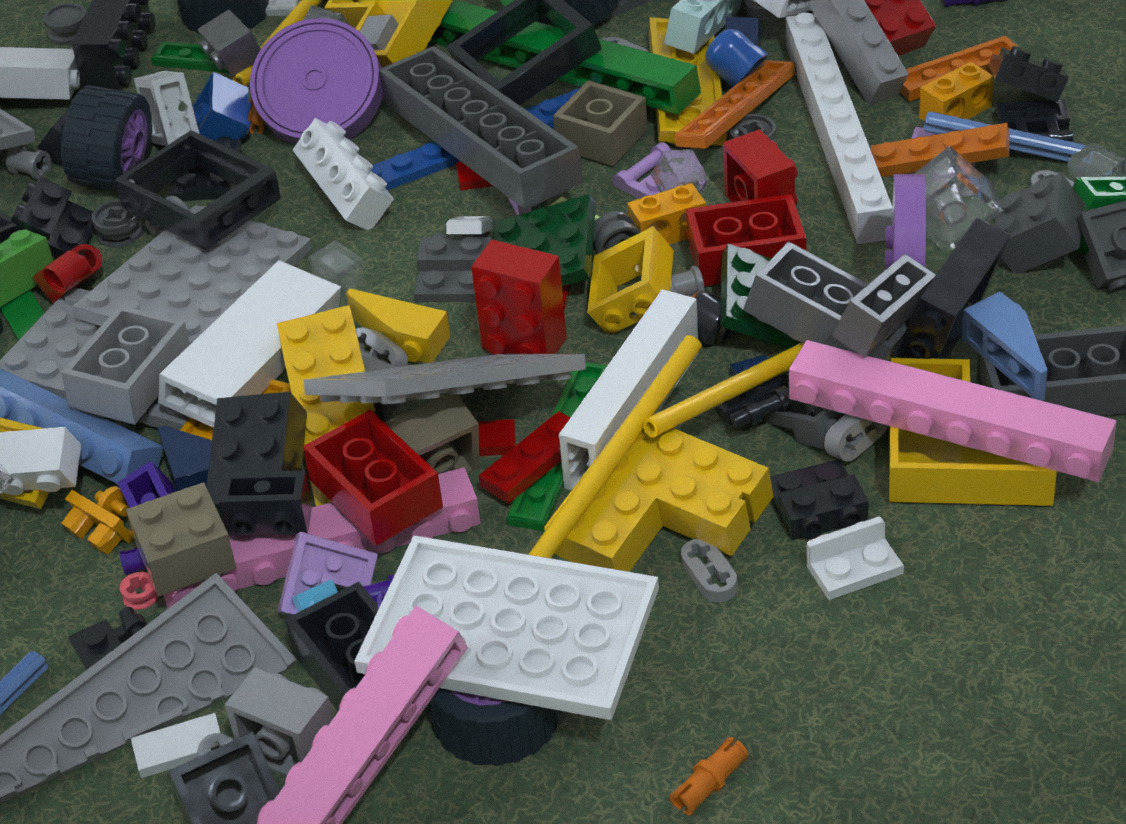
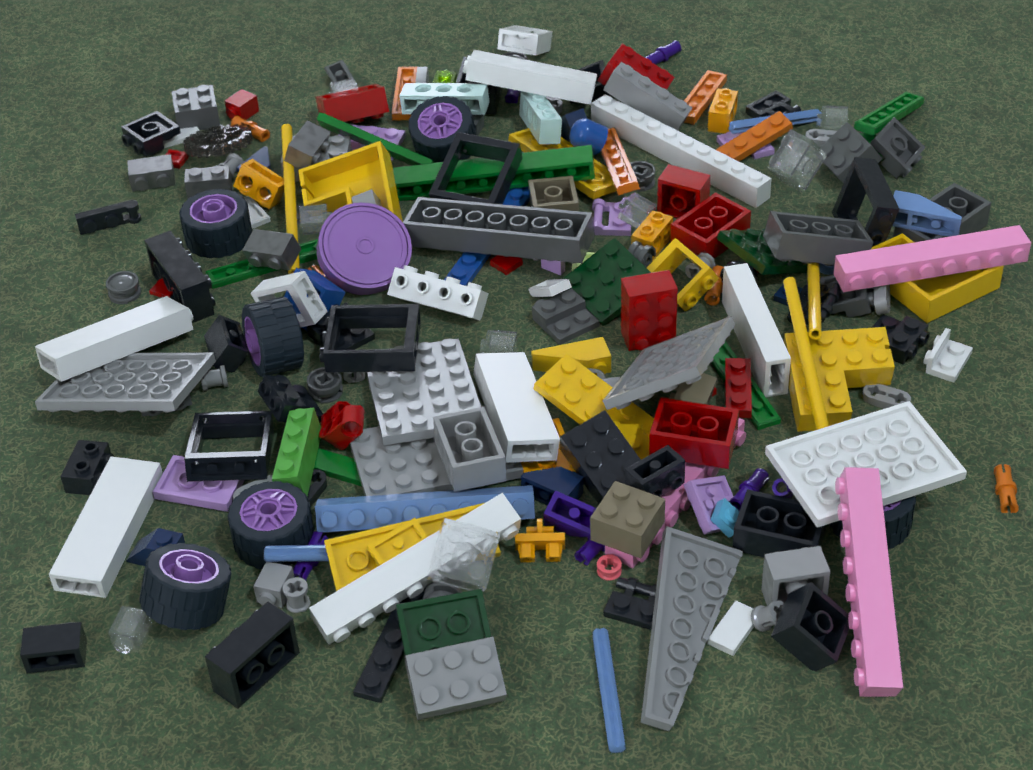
camera: 40 degrees left, 0 degrees up
(883, 305) = (861, 219): dark grey brick -> none
(908, 220) = (818, 184): medium lavender brick -> none
(1031, 75) = (752, 82): black plate -> none

